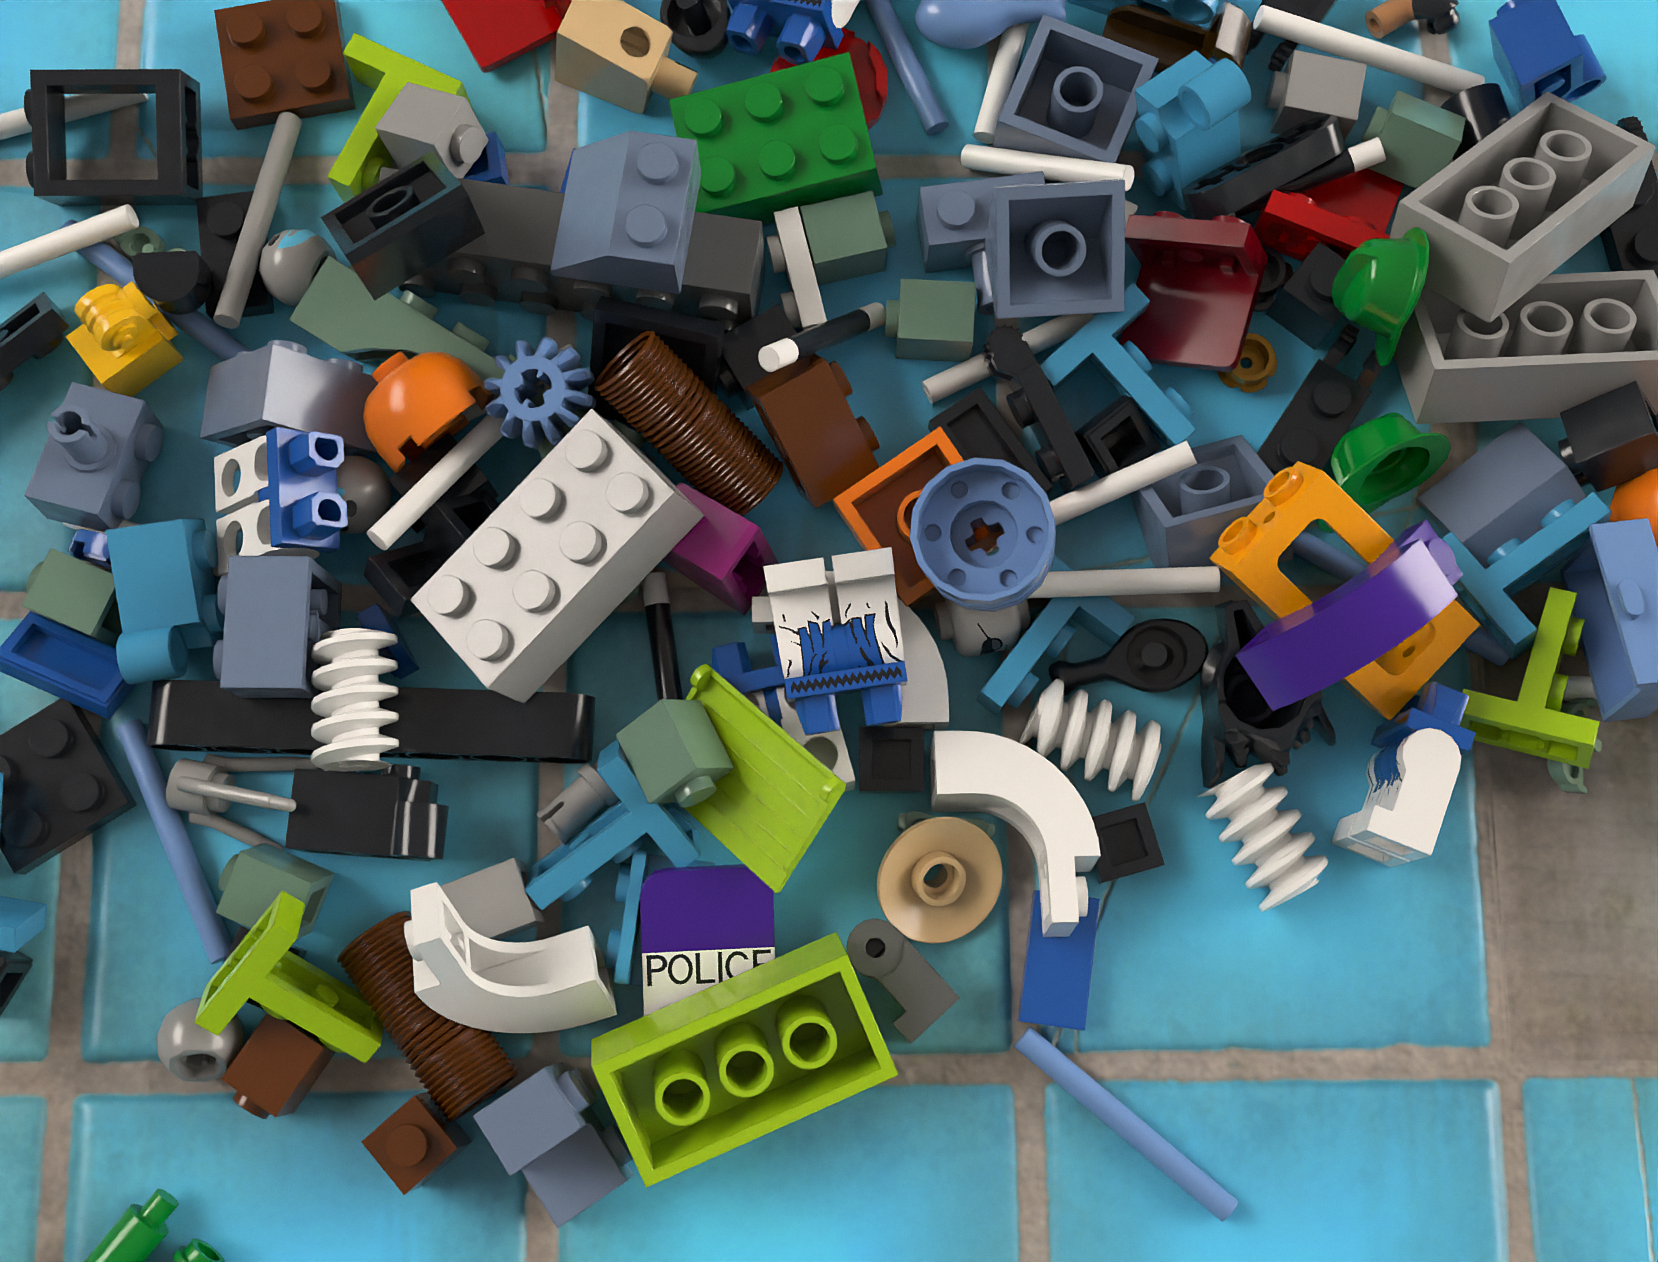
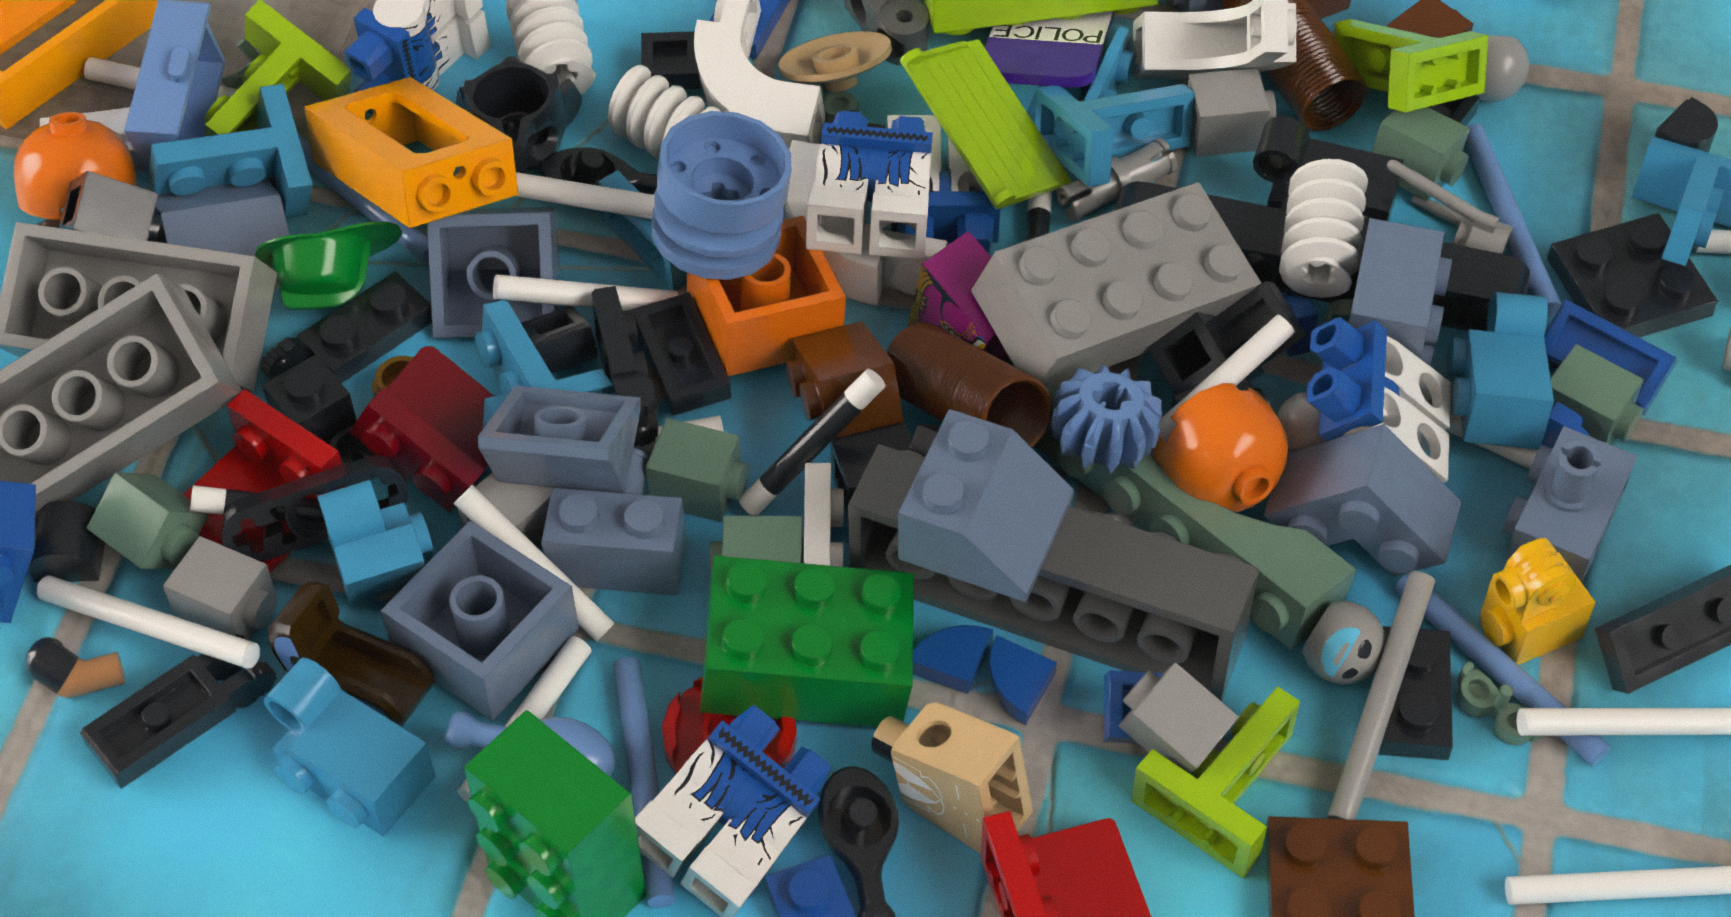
camera: 165 degrees left, 25 degrees down
(173, 280) = (1478, 631): black brick -> none
(176, 126) = (1528, 846): black window -> none
(404, 224) = (1218, 542): black slope -> none
(675, 752) = (1041, 142): sand green brick -> none
(1355, 621) = (413, 62): dark purple arch -> none
(1382, 286) = (260, 335): green piece -> none

